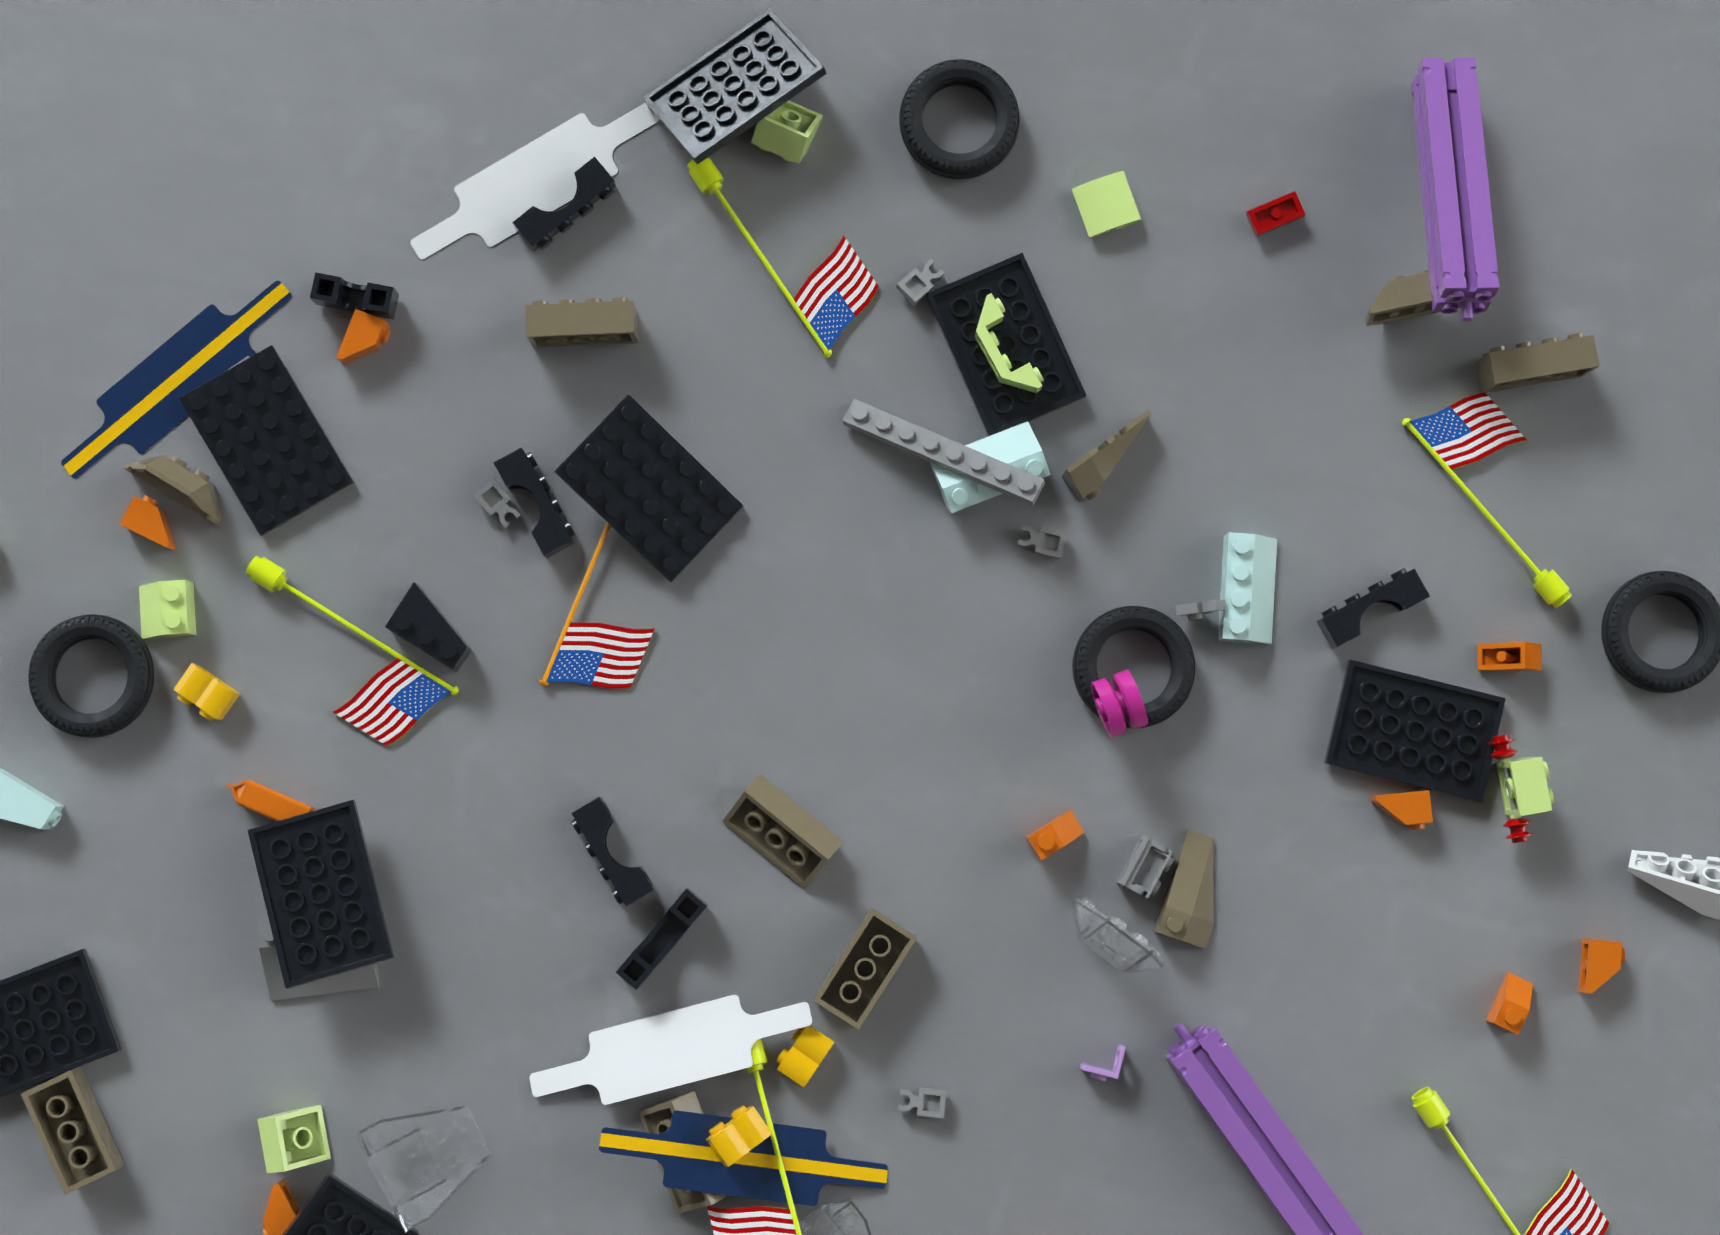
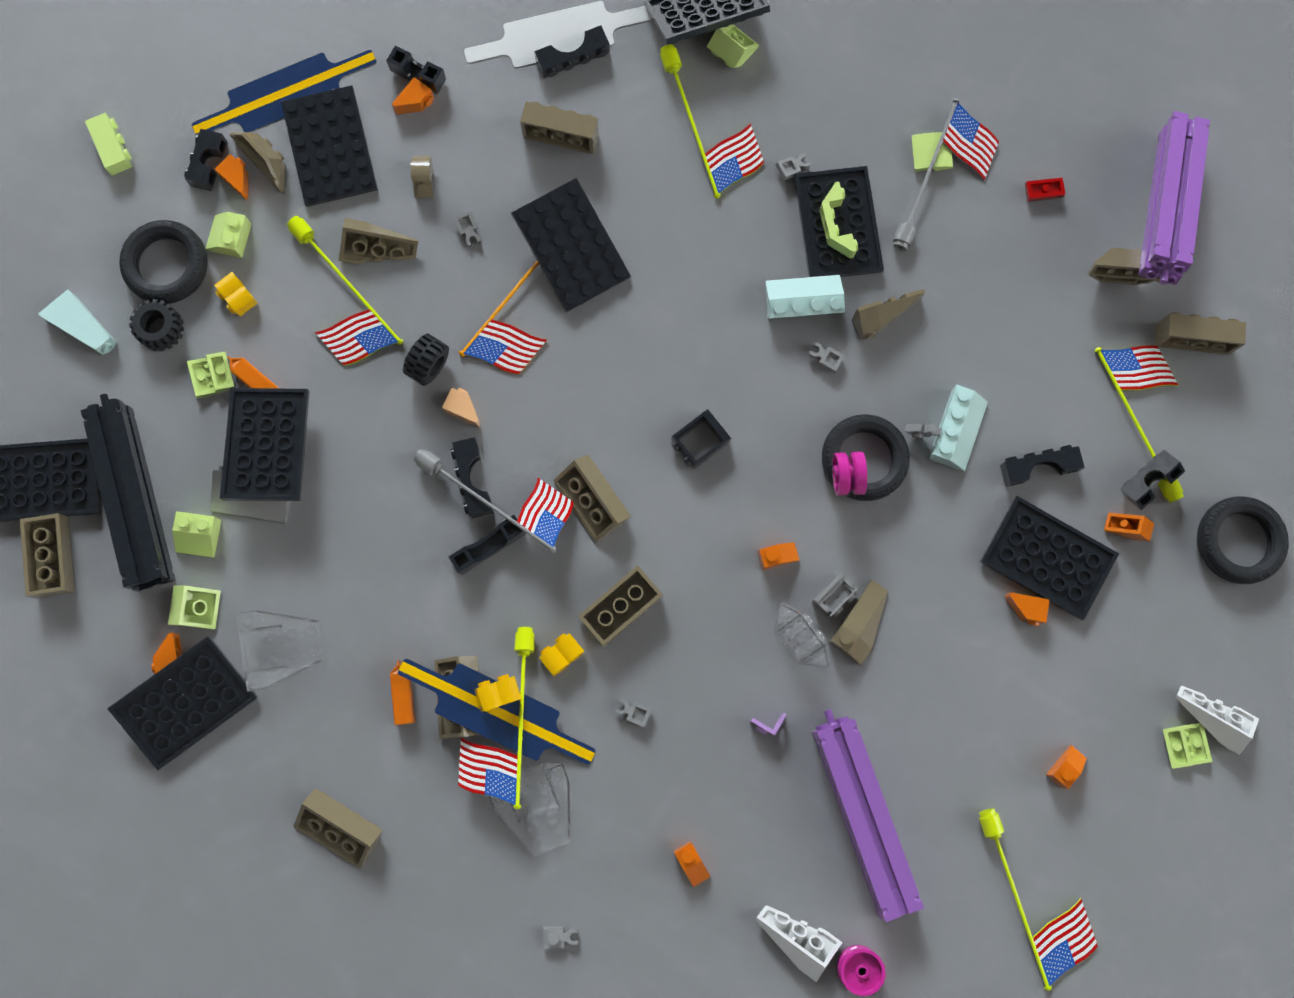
camera: 20 degrees right, 5 degrees down
(92, 761) = (146, 315): none -> black tyre
(95, 490) = (207, 145): none -> black arch
(153, 1014) = (127, 495): none -> black brick
(208, 814) = (210, 375): none -> yellowish green slope
(263, 1039) = (196, 534): none -> yellowish green slope
(367, 563) = (369, 242): none -> dark tan wedge
(411, 447) = (422, 176): none -> dark tan brick
(428, 629) = (394, 295): black wedge -> none
(500, 710) = (425, 359): none -> black tyre
(519, 473) = (496, 255): black arch -> none
(567, 757) = (460, 406): none -> light nougat slope
(611, 1176) = (402, 698): none -> orange piece
(670, 1049) = (470, 623): white sticker -> none
(723, 871) = (541, 514): none -> flag
(919, 684) = (713, 425): none -> black window
(944, 452) = (777, 277): light grey plate -> none
(968, 74) = (855, 41): black tyre -> none
(1153, 177) = (969, 143): none -> flag
(1508, 600) = (1163, 467): none -> black arch
(1522, 787) = (1116, 615): yellowish green brick -> none
(1599, 963) = (1138, 756): orange slope -> none
(1658, 928) = (1187, 745): none -> yellowish green slope

